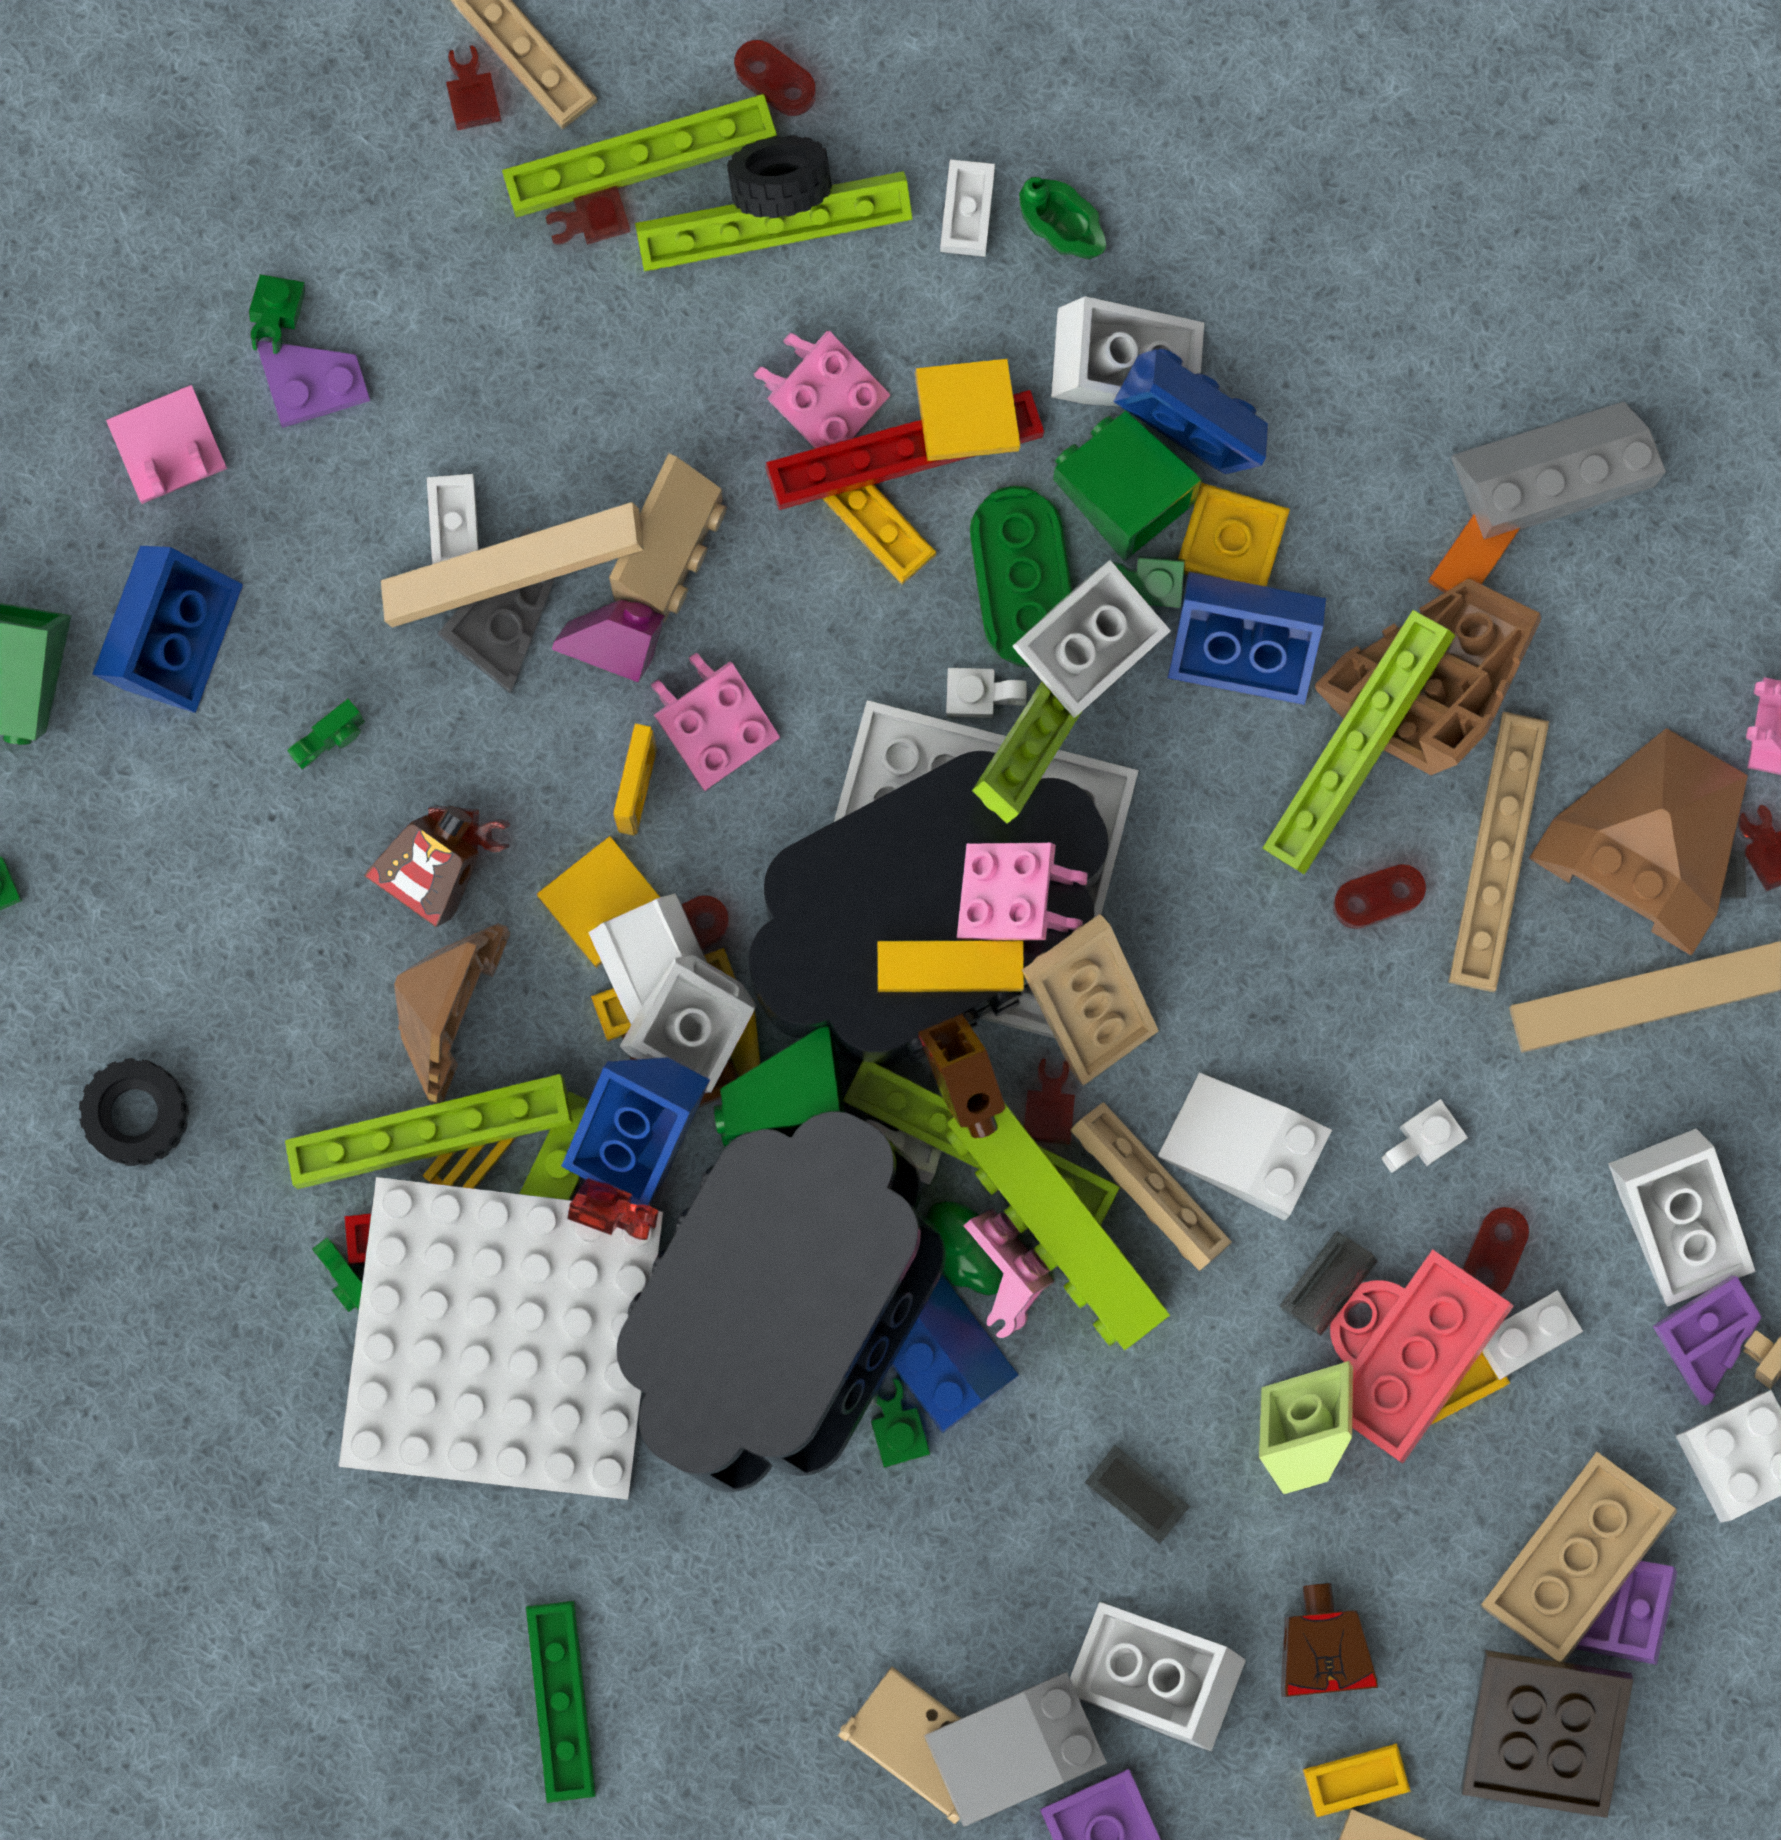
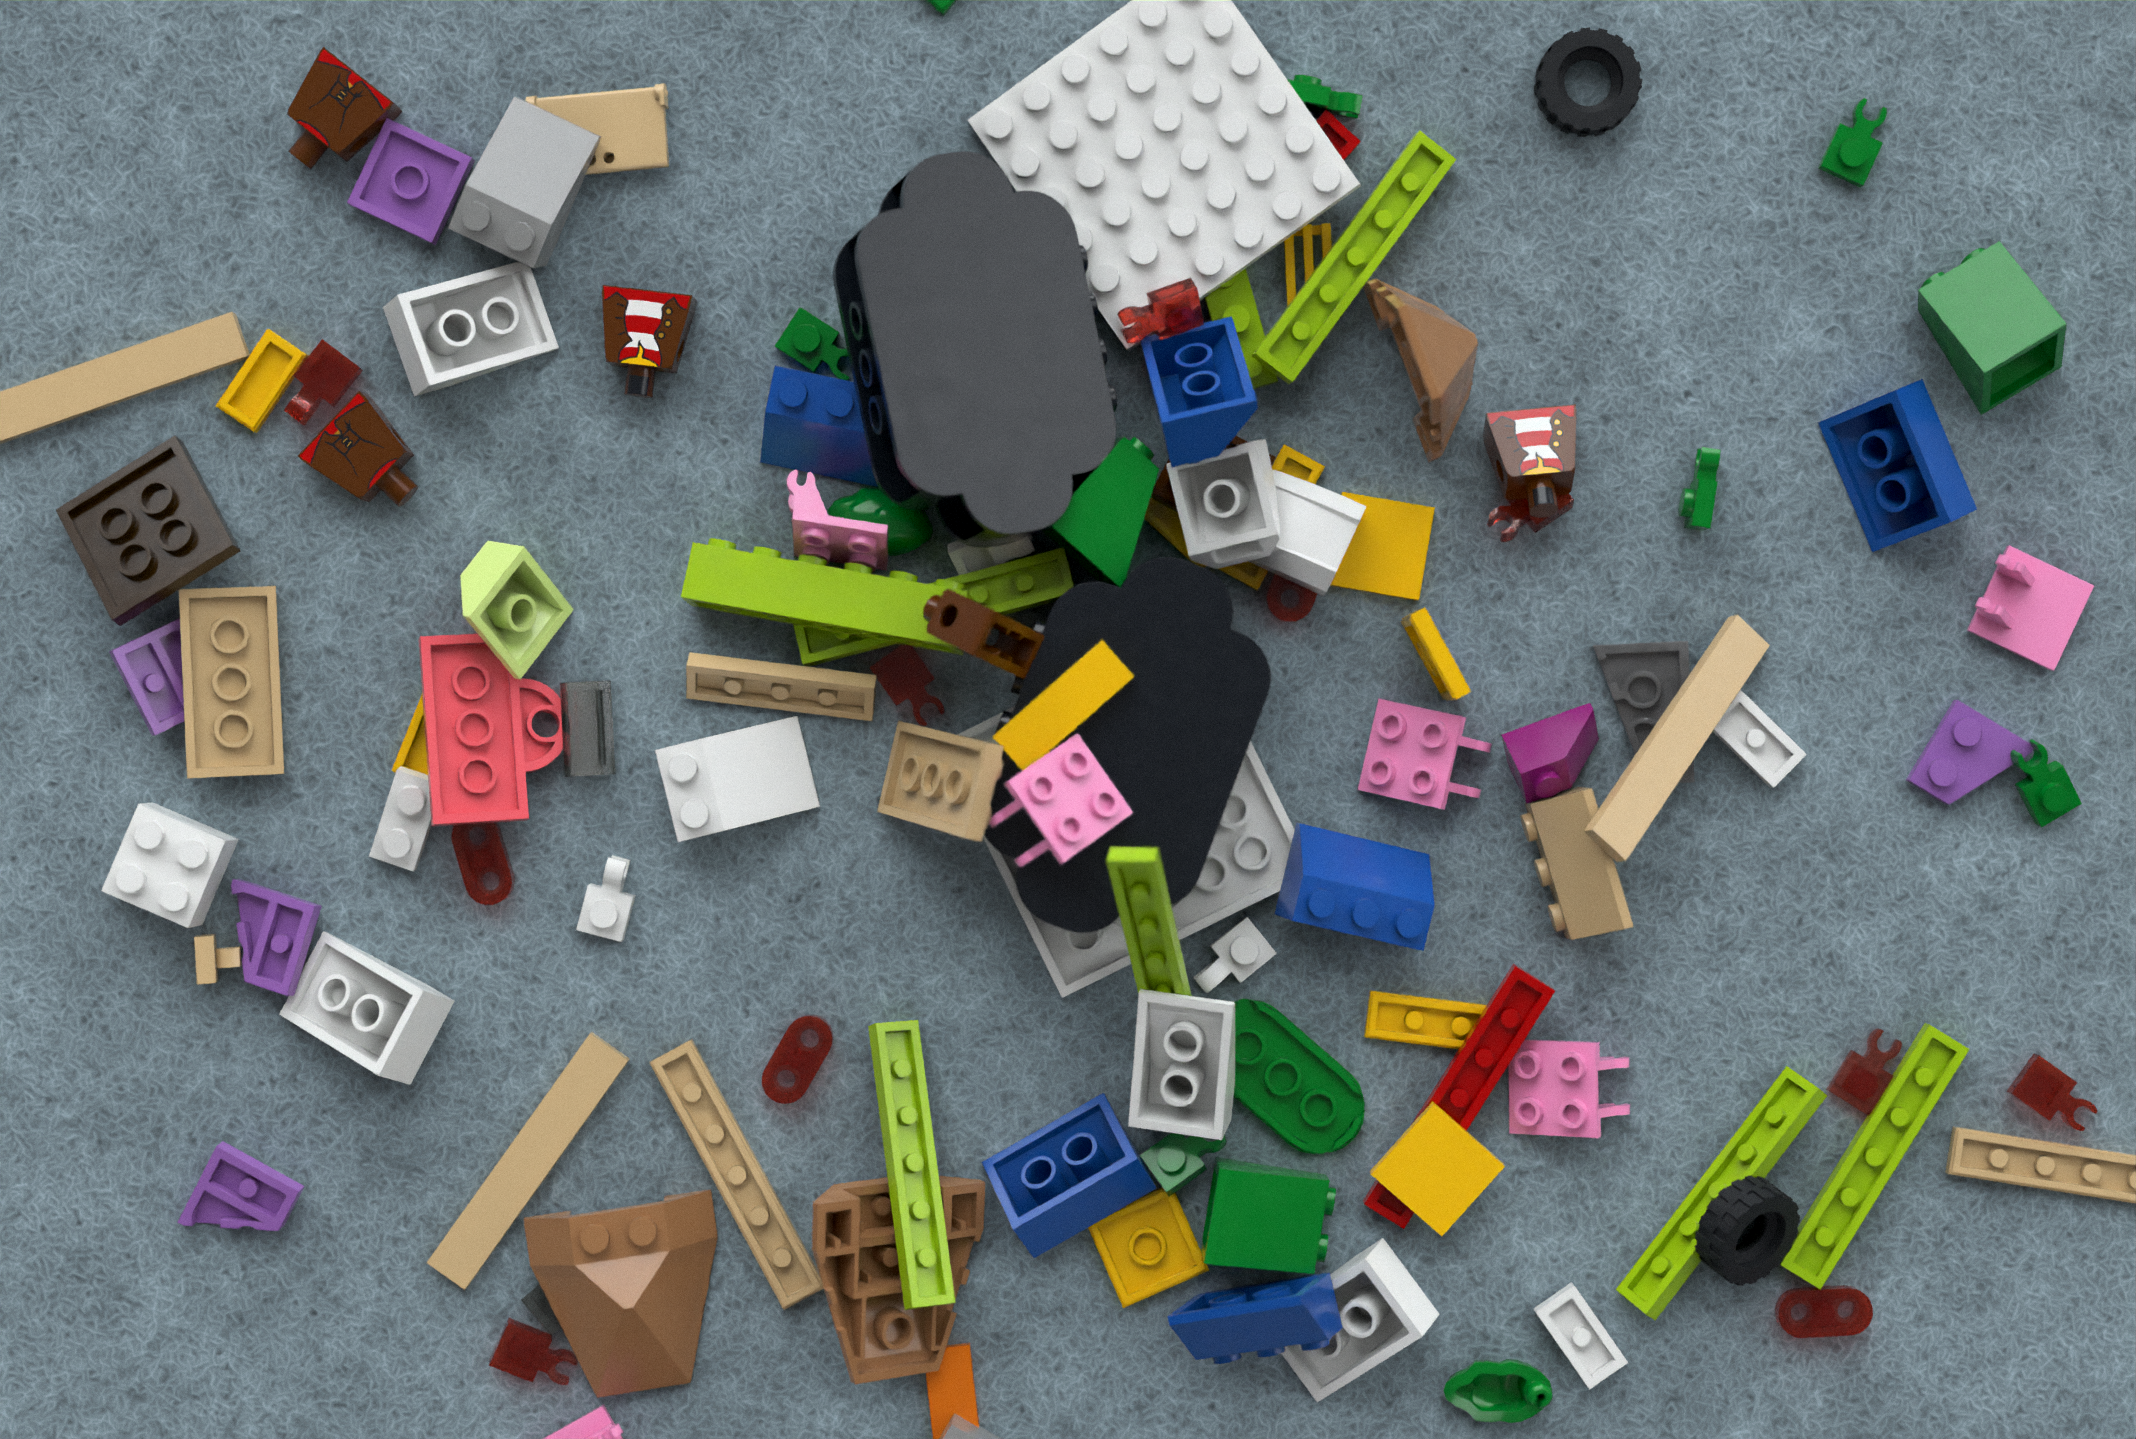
camera: 145 degrees right, 10 degrees up
(845, 661) = (1357, 887): none -> blue slope
(1022, 1549) = (645, 333): none -> torso
(1137, 1494) = (597, 449): clear smoke tile -> none
(1302, 1736) = (325, 376): none -> clear red plate

